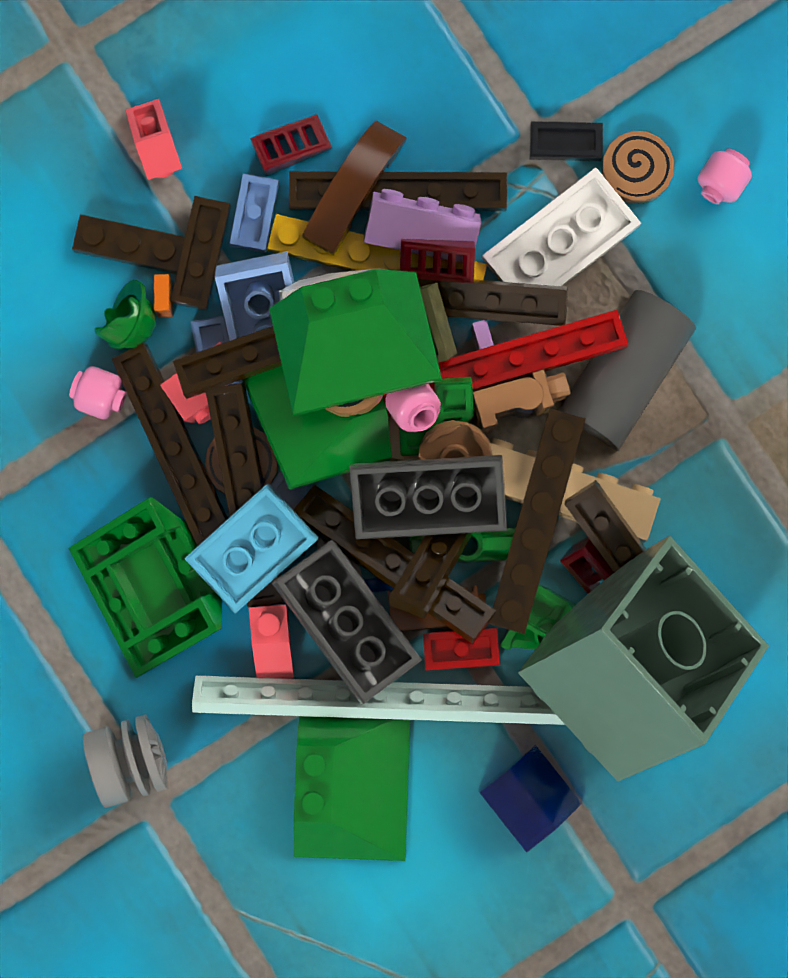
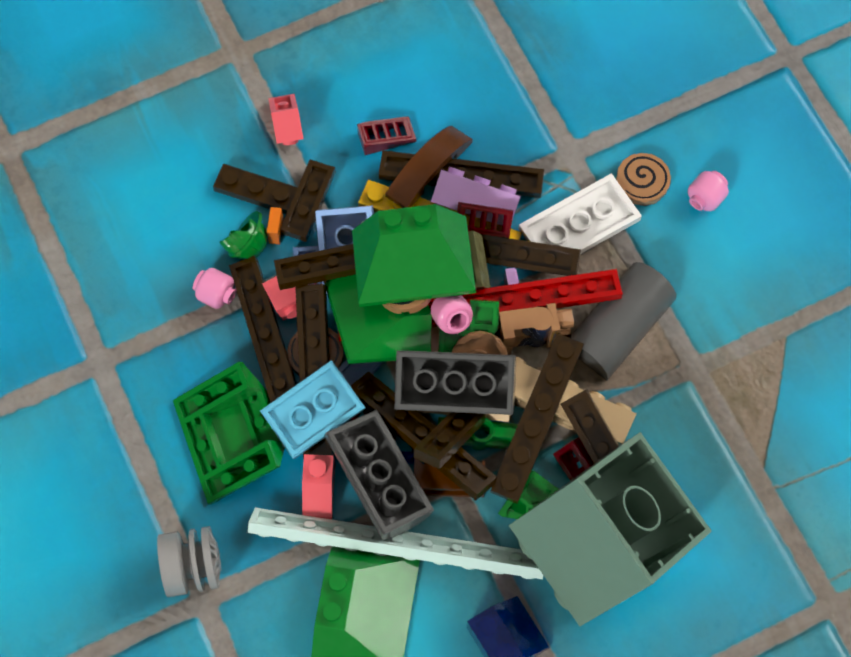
camera: 10 degrees right, 15 degrees down
(254, 213) = (352, 177): medium blue plate -> none
(453, 651) = (466, 512): red plate -> none
(566, 141) = (591, 155): black tile -> none

